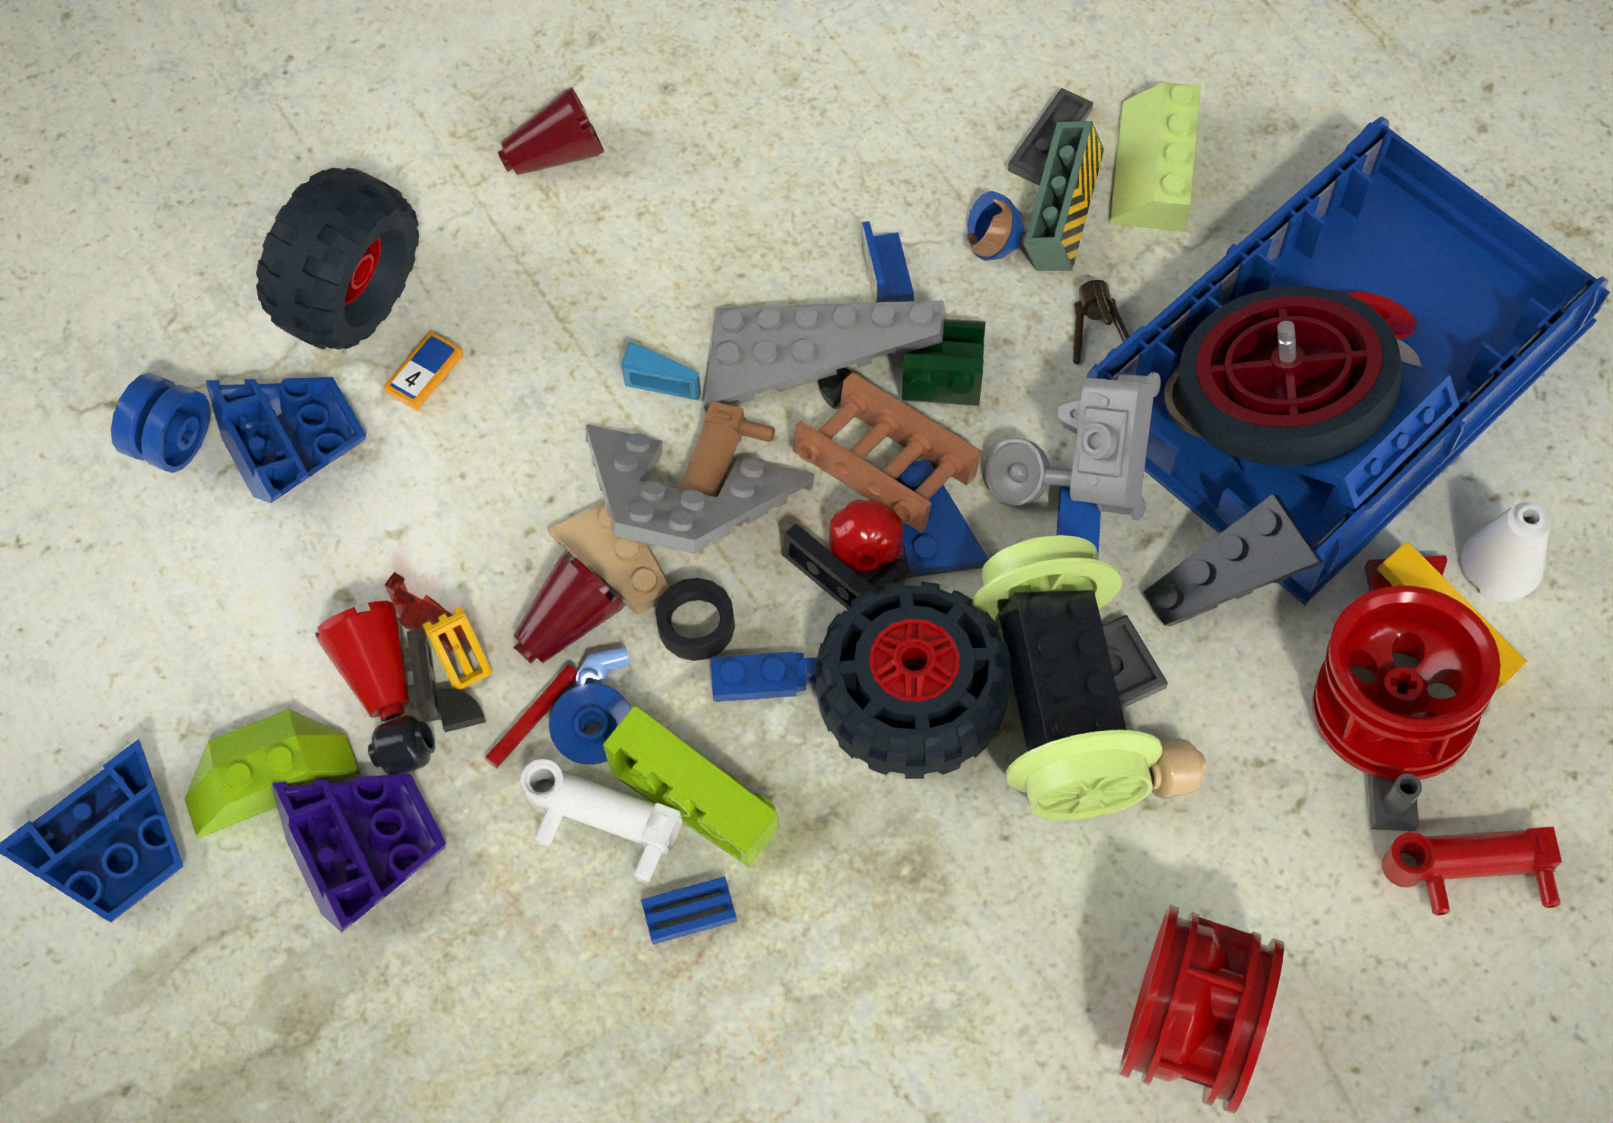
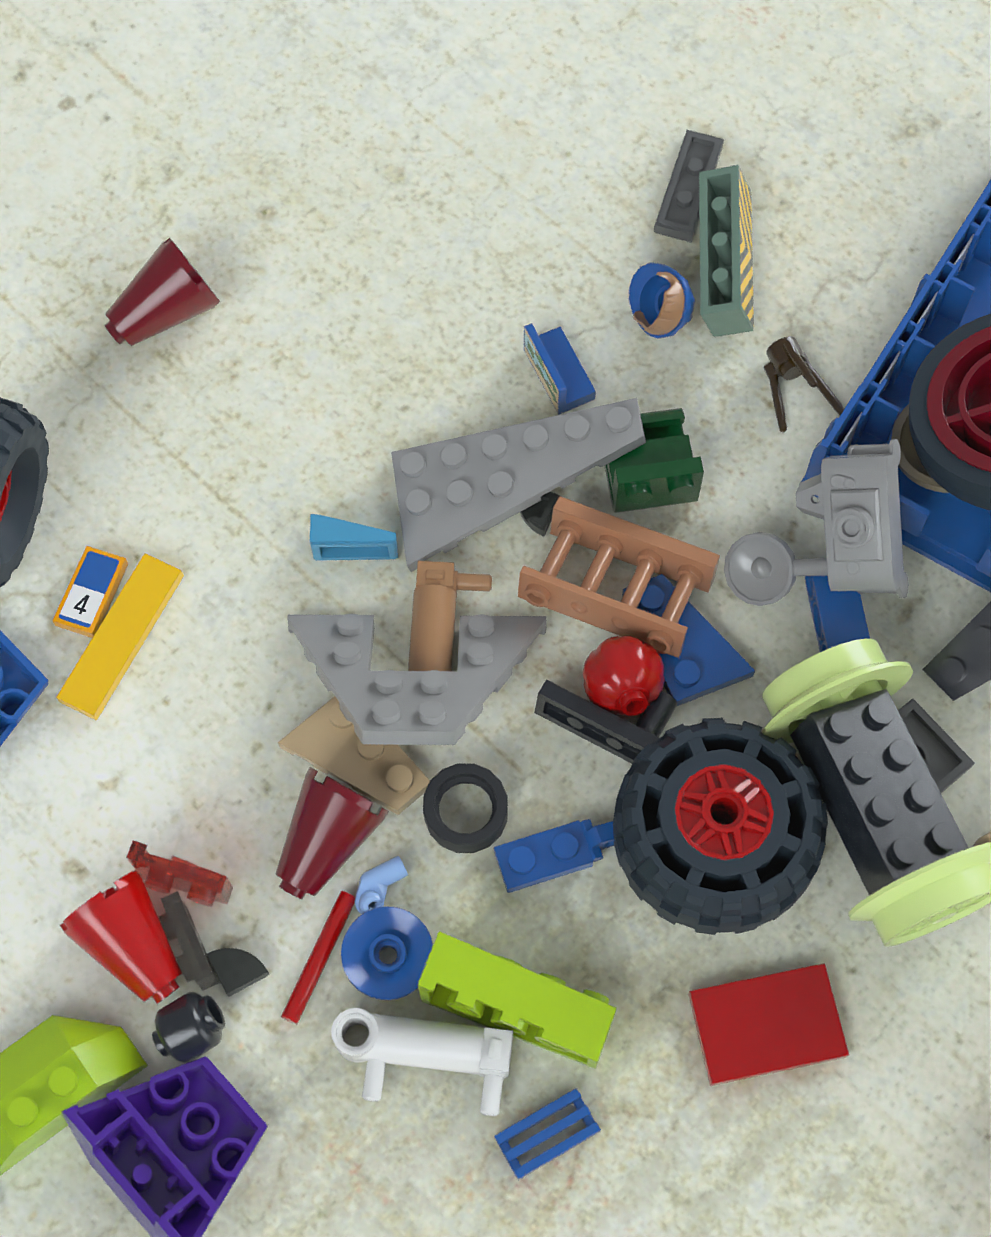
camera: 15 degrees left, 5 degrees up
(438, 413) = (120, 636): none -> yellow tile
(446, 625) = (207, 888): yellow tile -> none
(913, 864) = (768, 1024): none -> red tile
(1156, 157) = (807, 187): yellowish green slope -> none

